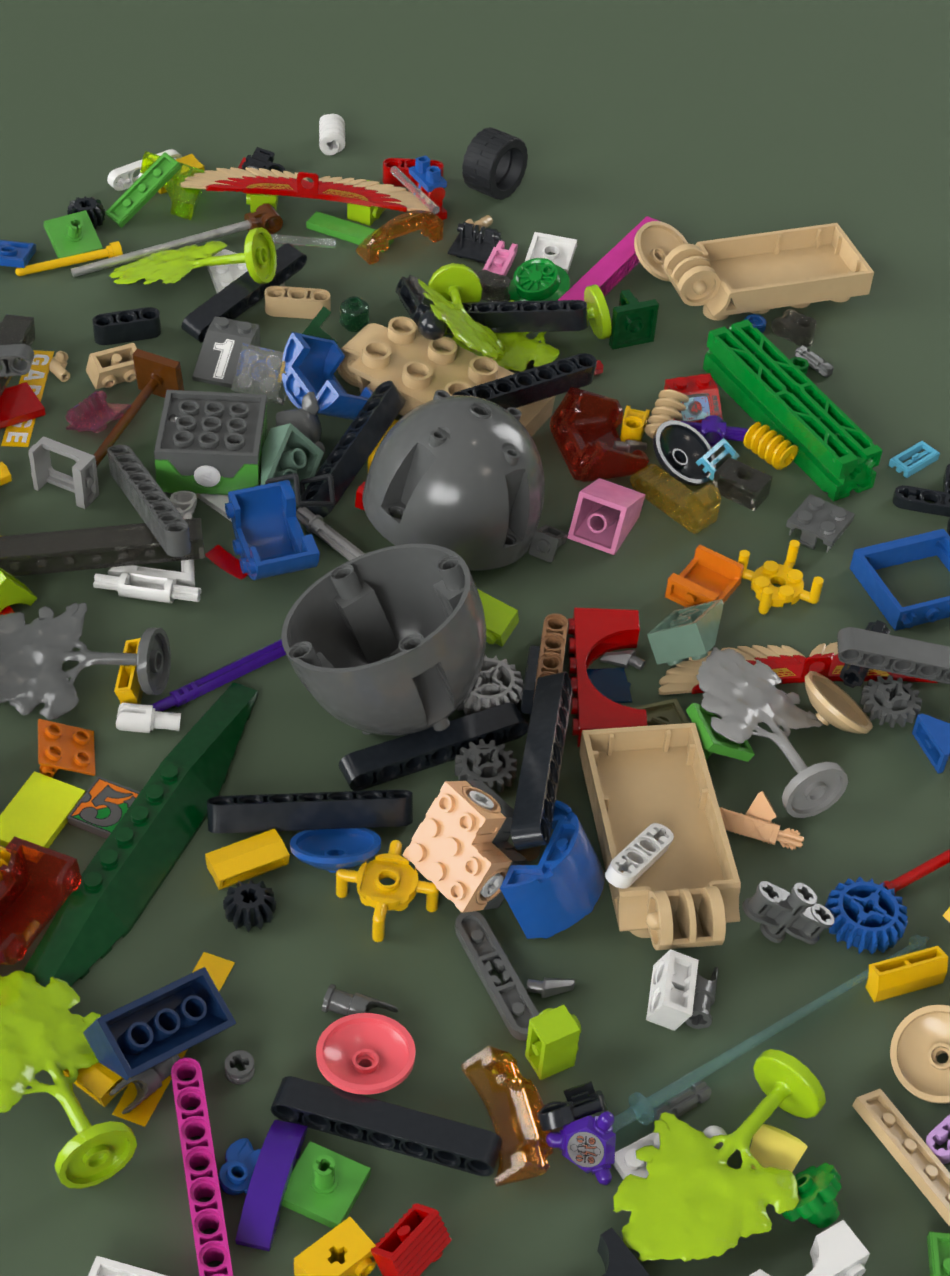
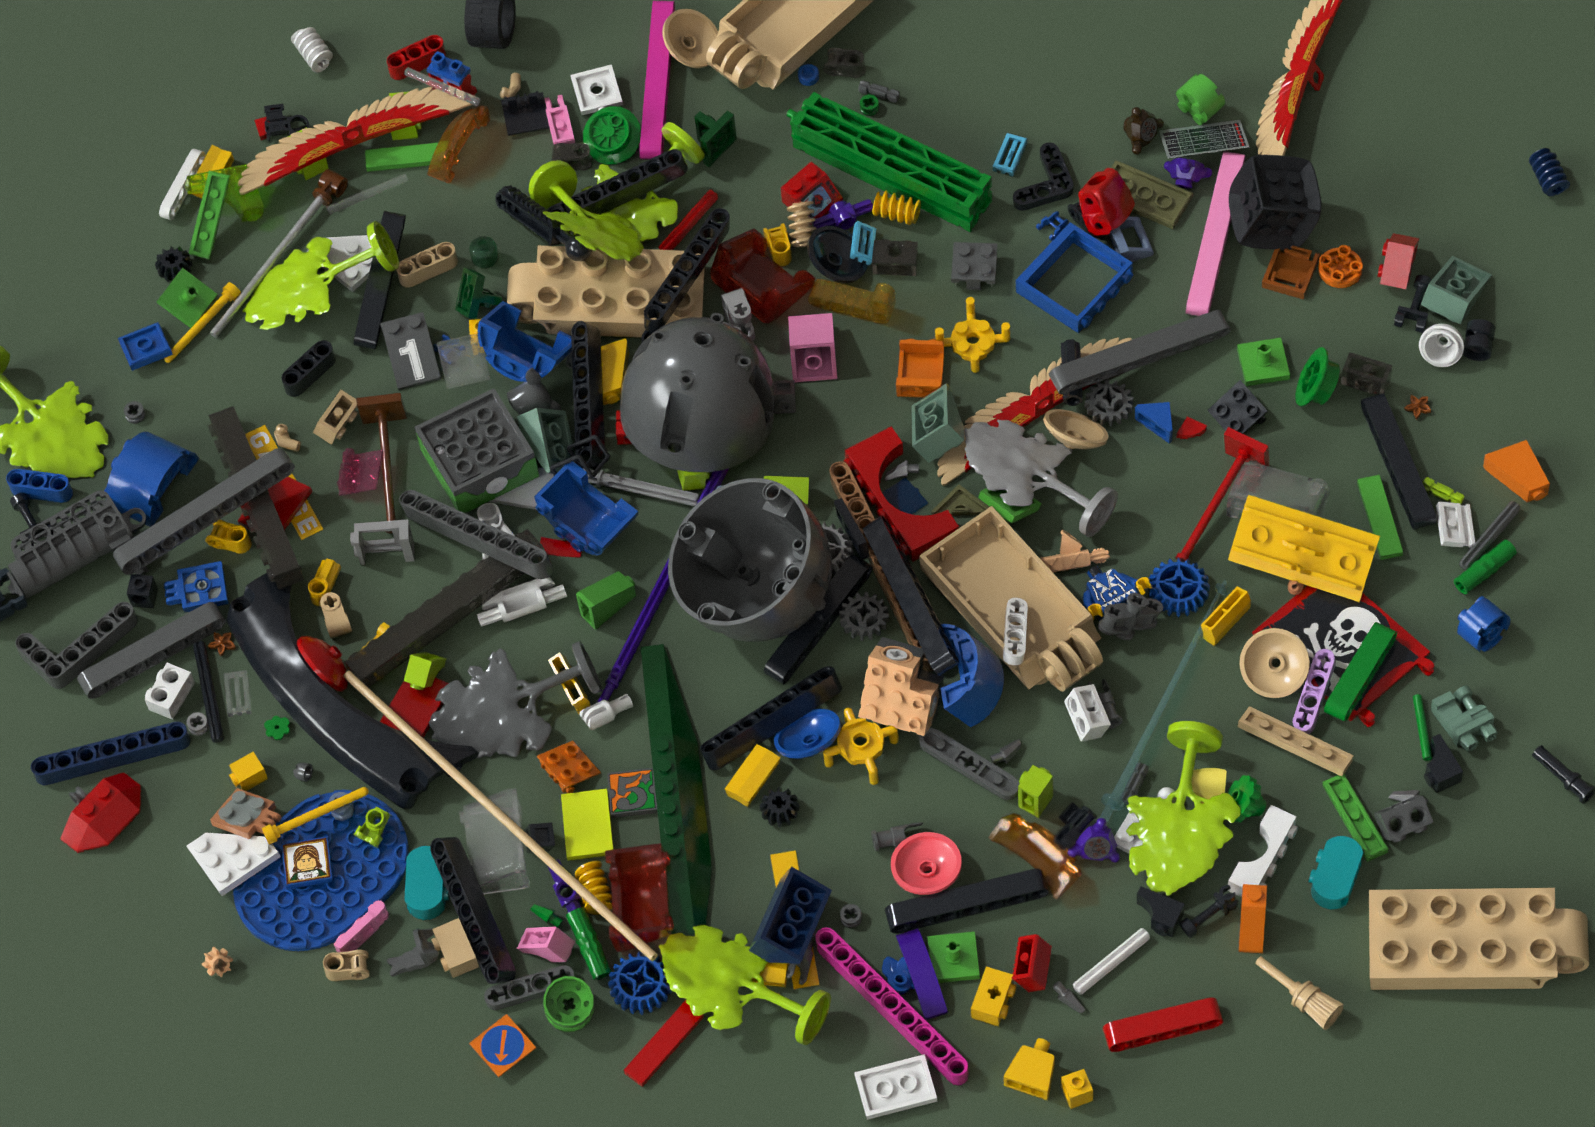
camera: 20 degrees left, 15 degrees up
(231, 618) = (605, 598): none -> bright green slope
(553, 454) = (738, 311): none -> light grey piece
(629, 446) = (788, 267): flat silver bar -> none
(782, 871) = (1110, 589): none -> torso
(920, 524) = (1049, 221): none -> blue piece

